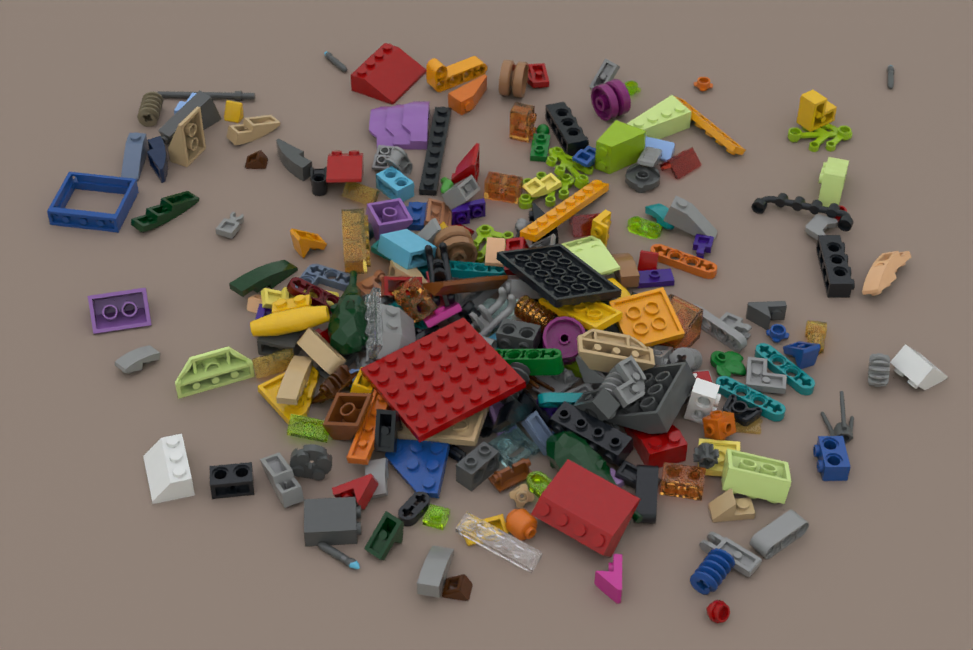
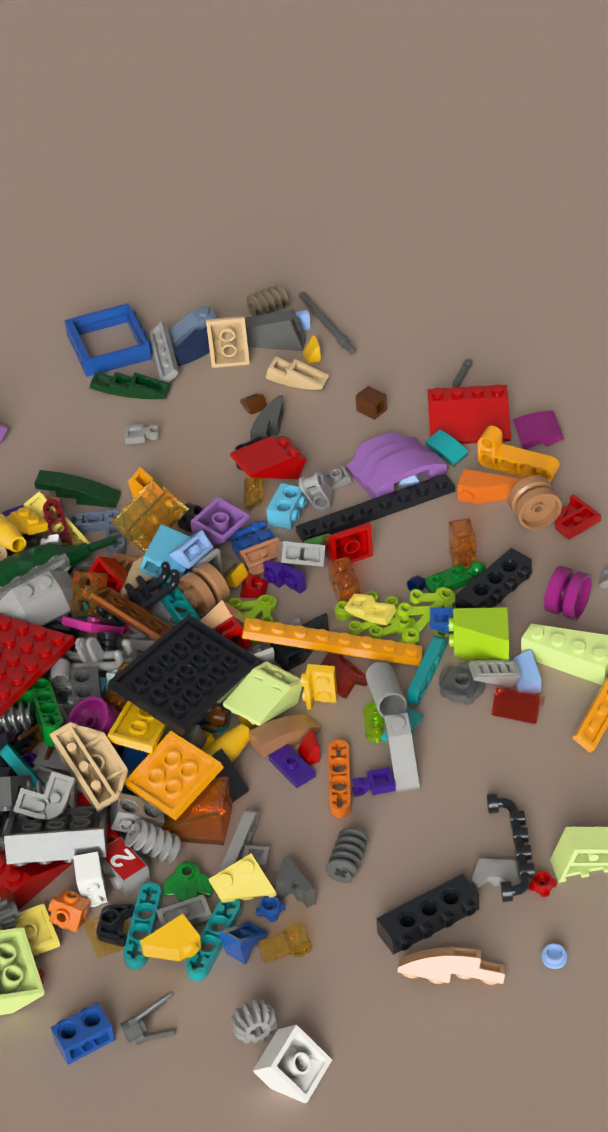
camera: 65 degrees right, 0 degrees up
(150, 178) = (164, 352): none -> light grey plate
(325, 108) = (371, 402): none -> reddish brown brick
(334, 296) = (53, 539): none -> white tile
(409, 94) = (447, 447): none -> teal slope
(416, 233) = (192, 549): none -> light blue slope
(430, 50) = (538, 428): none -> magenta slope
(535, 160) = (416, 583): none -> clear blue hinge
(631, 196) = (426, 670): none -> teal beam
(636, 205) = (386, 689): none -> light grey piece
(755, 330) = (242, 881): none -> light yellow wing
(760, 279) = (347, 855): none -> dark grey piece
(788, 378) = (172, 941): none -> yellow slope
(899, 231) = (554, 956): none -> light blue plate

